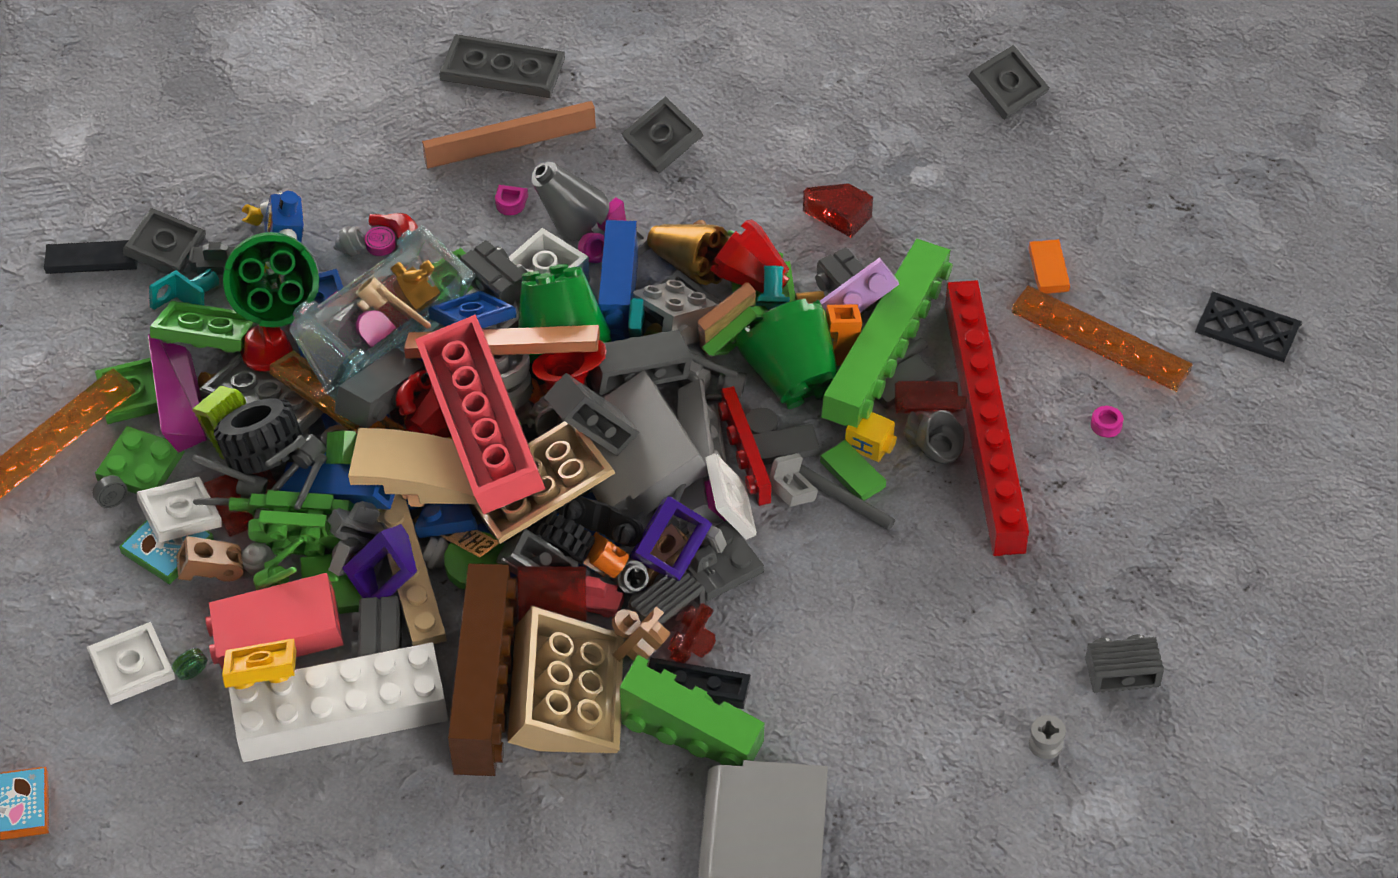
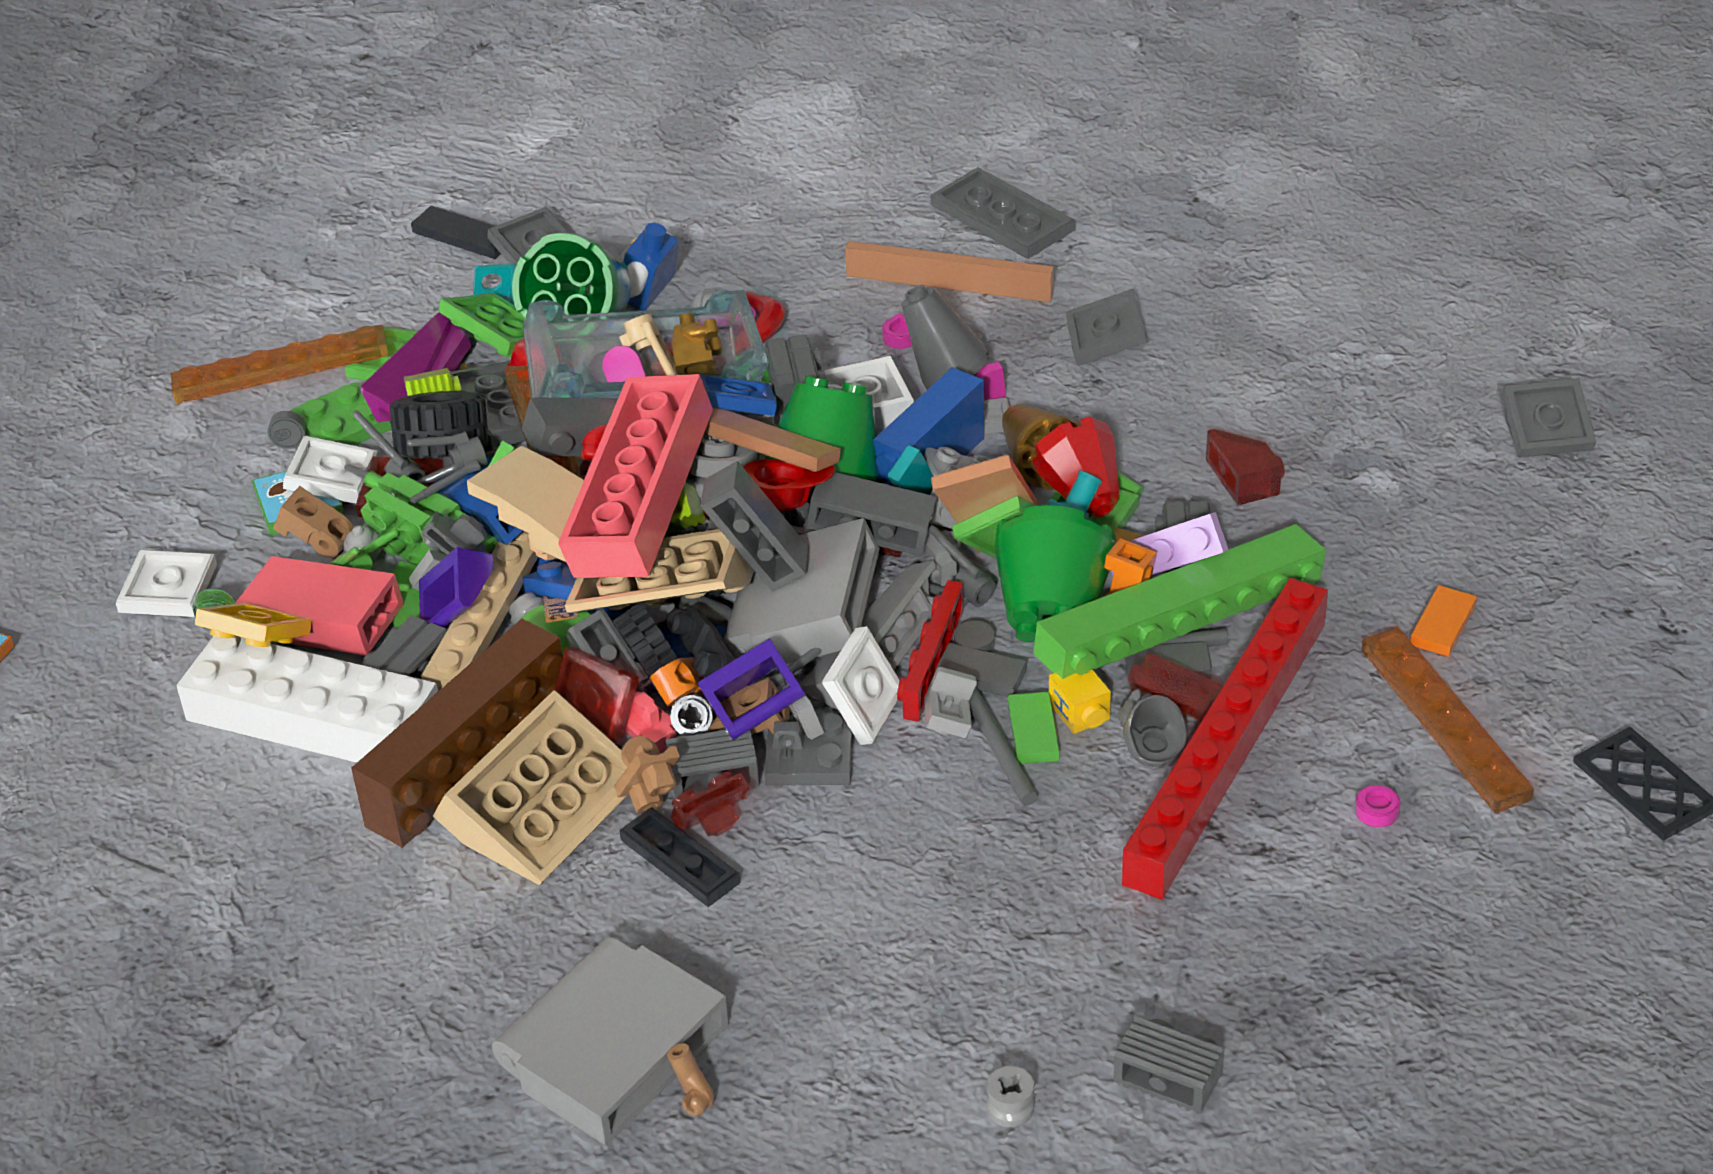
camera: 35 degrees right, 10 degrees down
(687, 717) = (627, 875): bright green wedge -> none
(846, 835) = (696, 1087): none -> medium nougat arm

